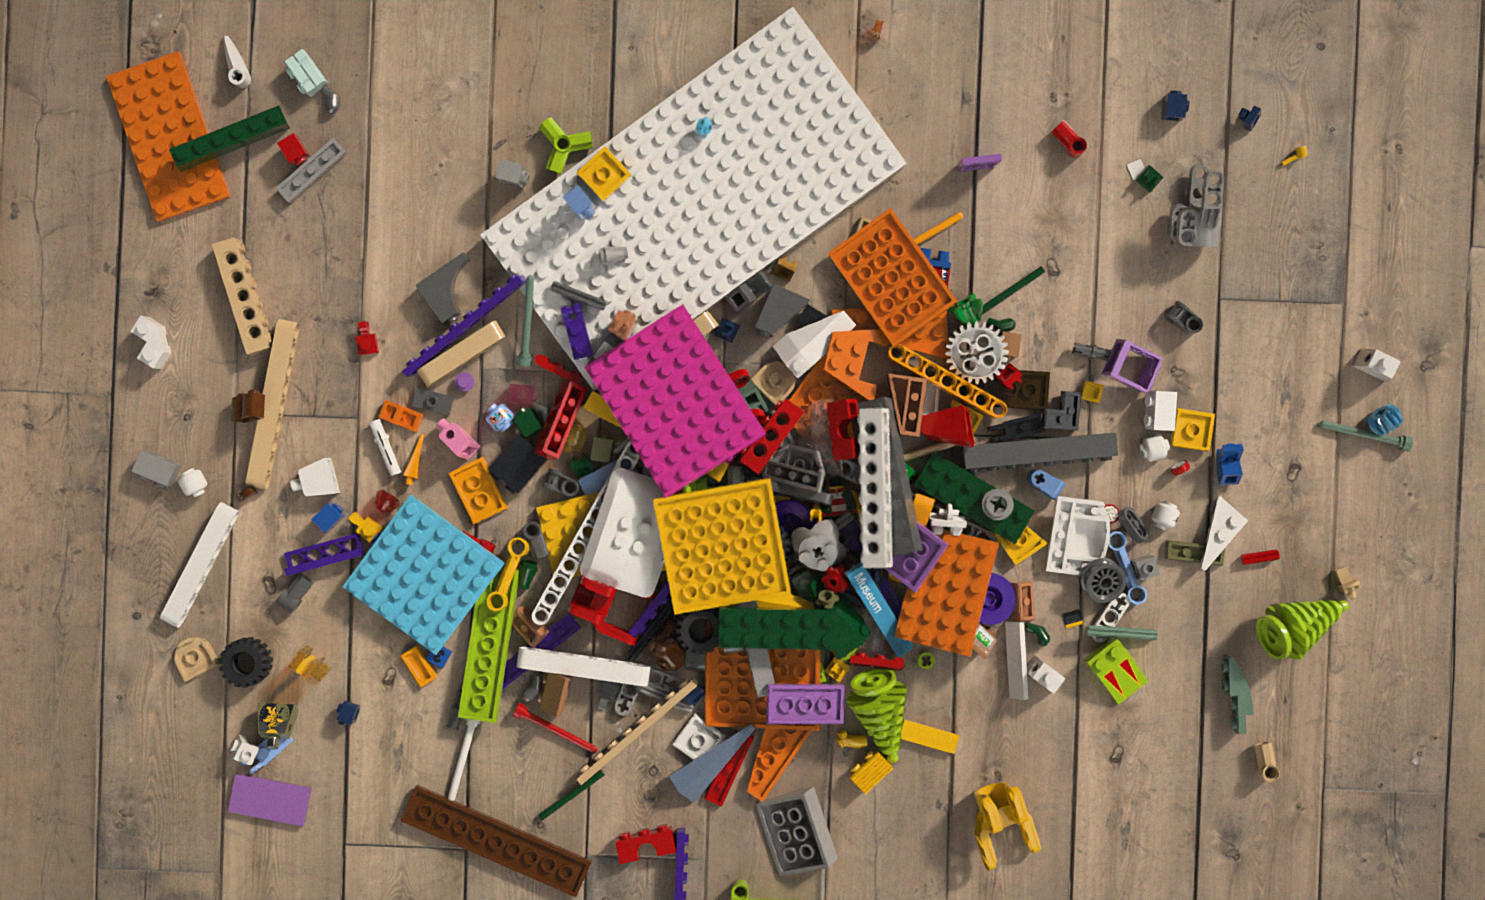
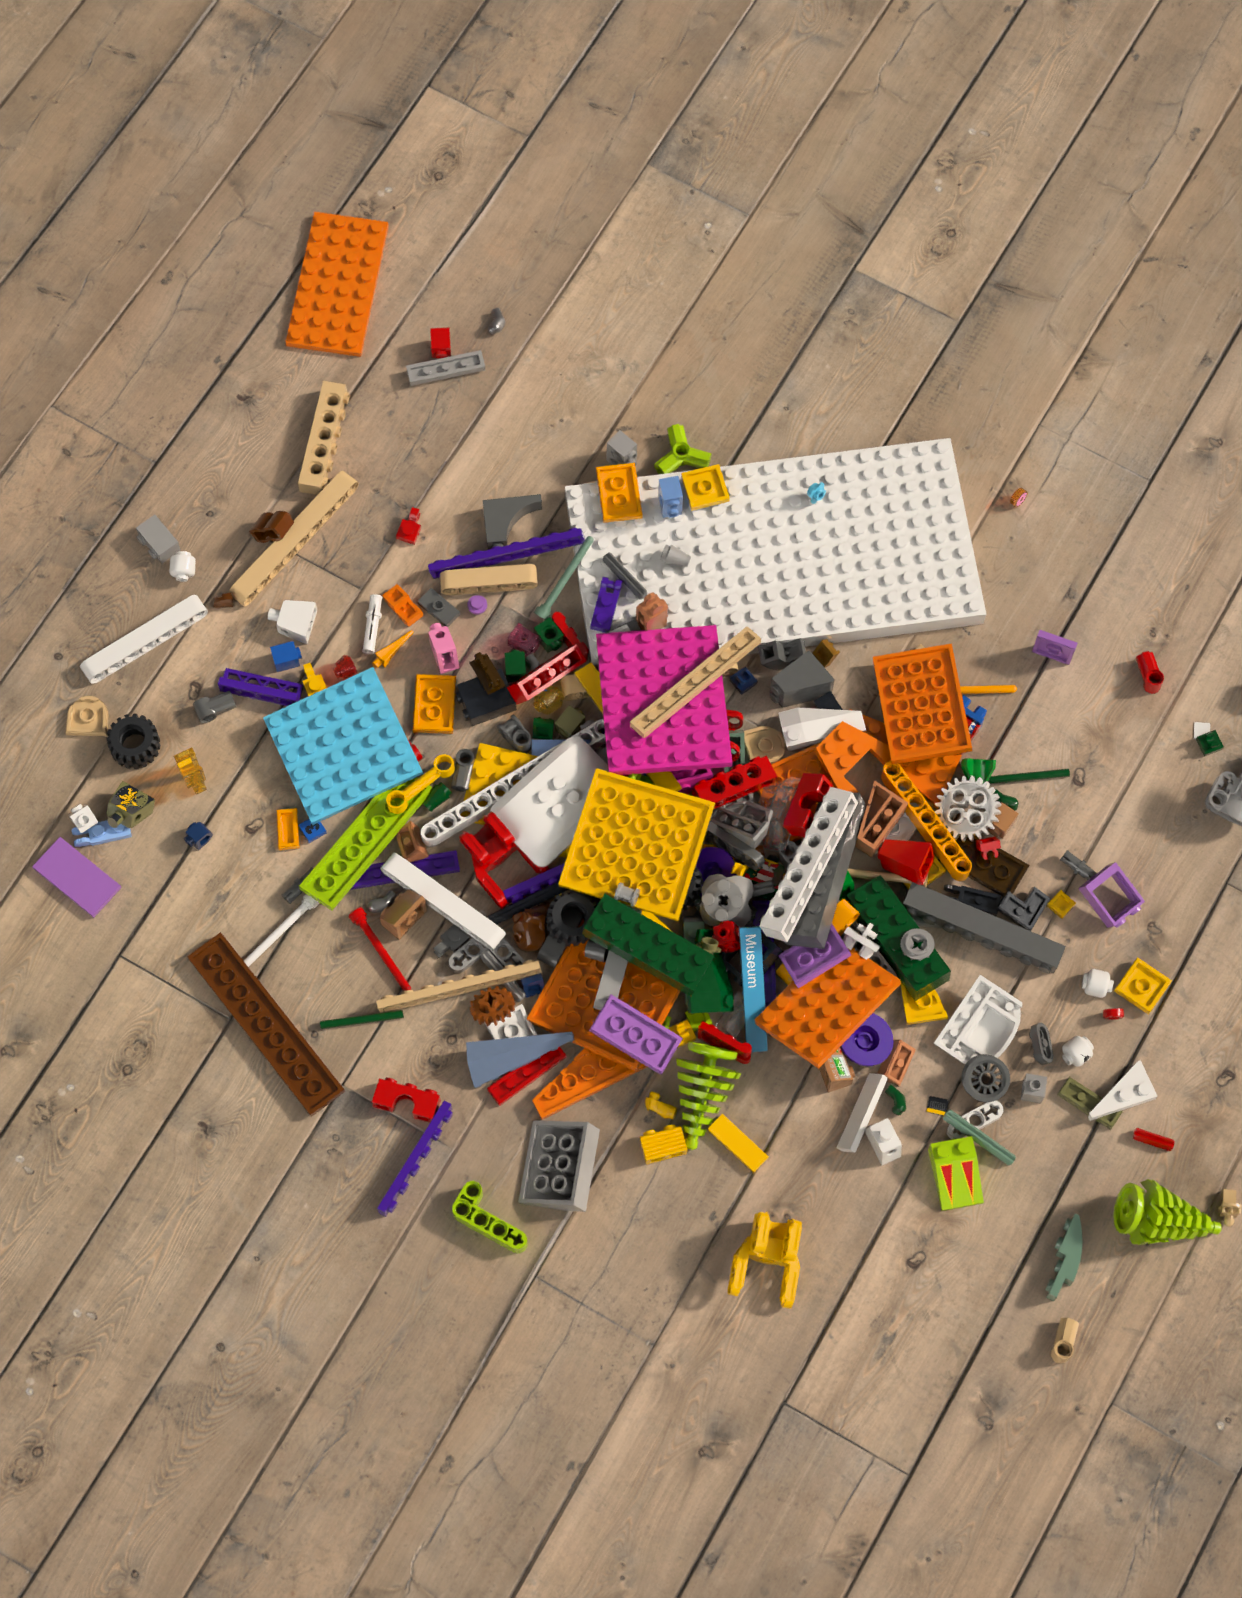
camera: 25 degrees right, 20 degrees down
(156, 348) = (219, 443): white brick -> none
(229, 138) = (391, 306): dark green brick -> none
(235, 64) = (429, 260): white piece -> none
(306, 73) = (488, 290): light aqua brick -> none
(499, 417) = (493, 647): light blue head -> none
(509, 447) = (487, 673): none -> dark brown hinge
(531, 217) = (619, 492): none -> light orange tile
(533, 376) = (549, 627): none -> dark green brick
(672, 731) = (492, 1006): none -> dark orange gear
(696, 374) = (695, 682): none -> tan plate
(738, 598) = (626, 894): none -> light grey bush
(932, 659) = (771, 1076): lime bush -> none
(1048, 485) = (975, 964): medium blue piece -> none
(1112, 512) = (1025, 1024): tile -> none
(1125, 564) = (1015, 1071): light blue piece -> none
(1160, 410) = (1119, 949): white brick -> none
(1183, 317) = (1181, 877): dark grey piece -> none
(1228, 464) = (1164, 1031): blue brick -> none

